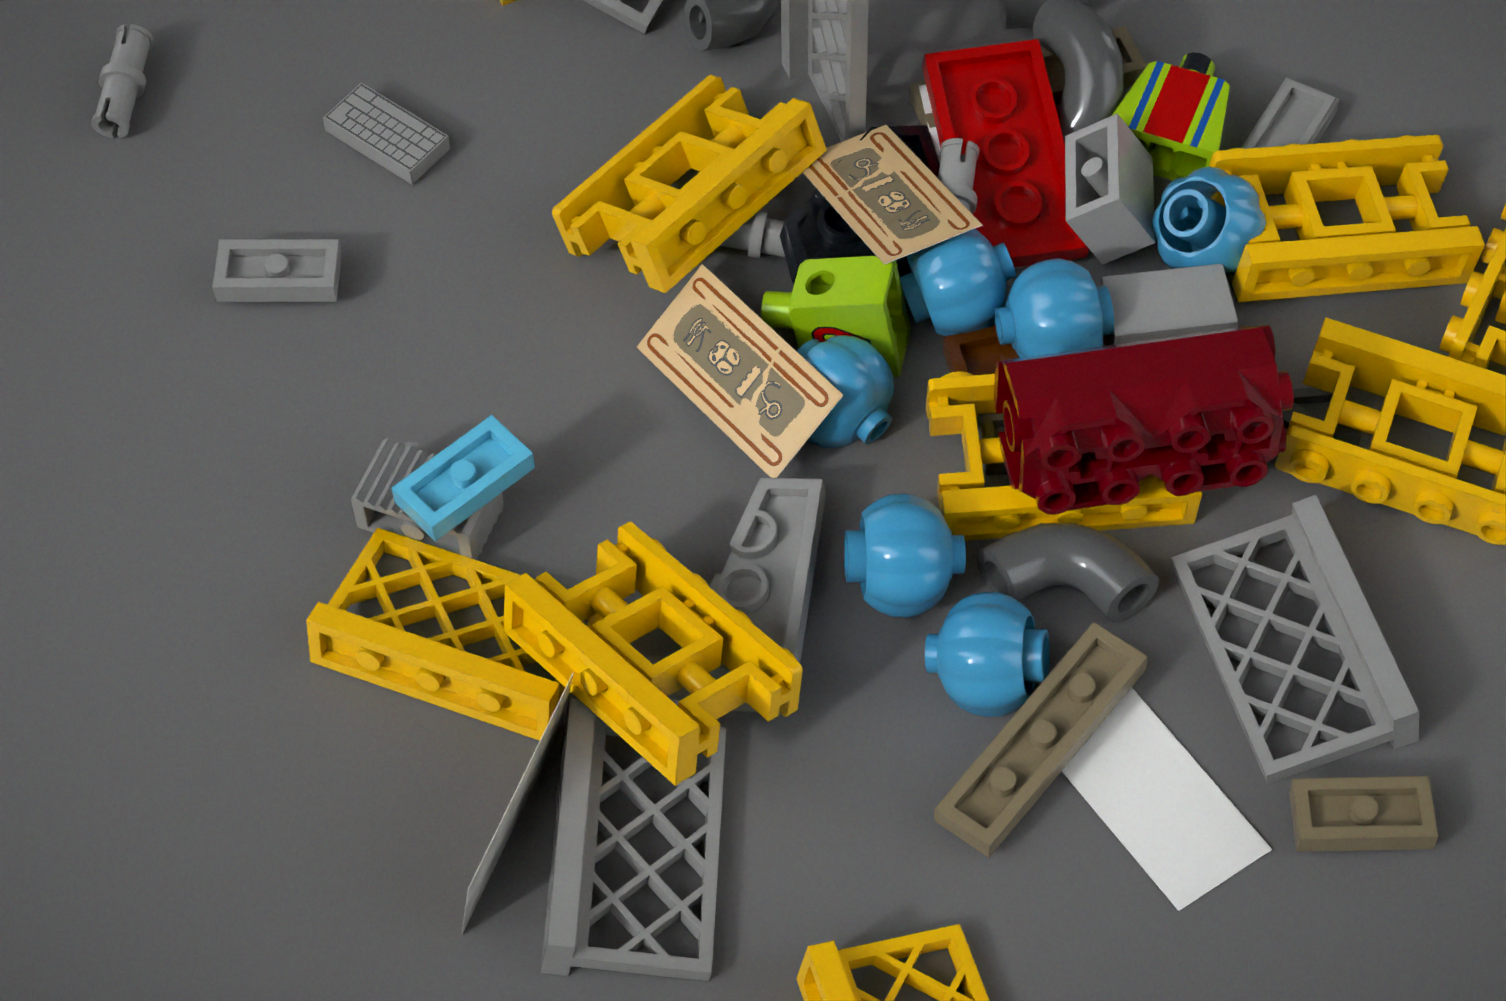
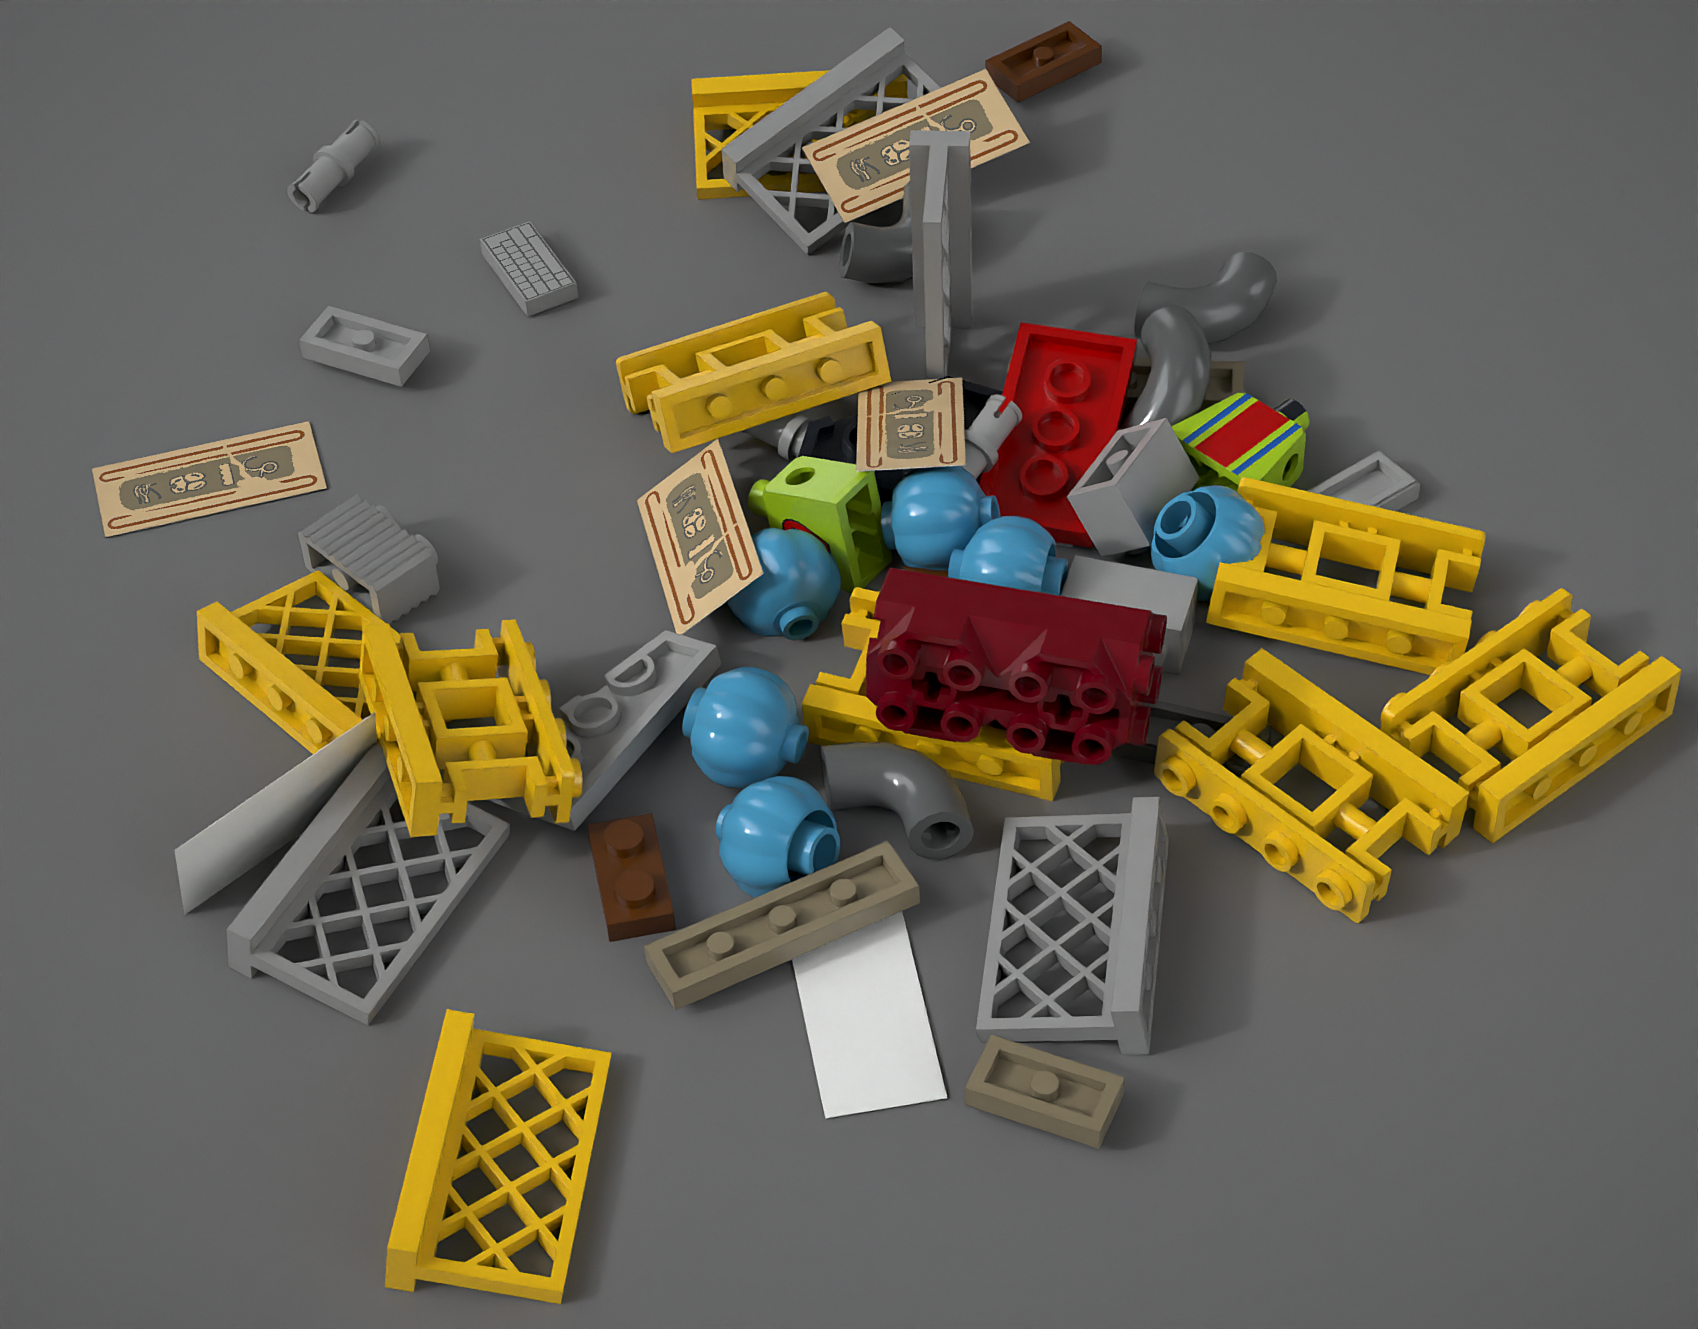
camera: 25 degrees right, 10 degrees down
(196, 465) = (208, 479): none -> sticker
(463, 477) = (391, 537): medium azure plate -> none
(868, 739) = (631, 877): none -> reddish brown plate

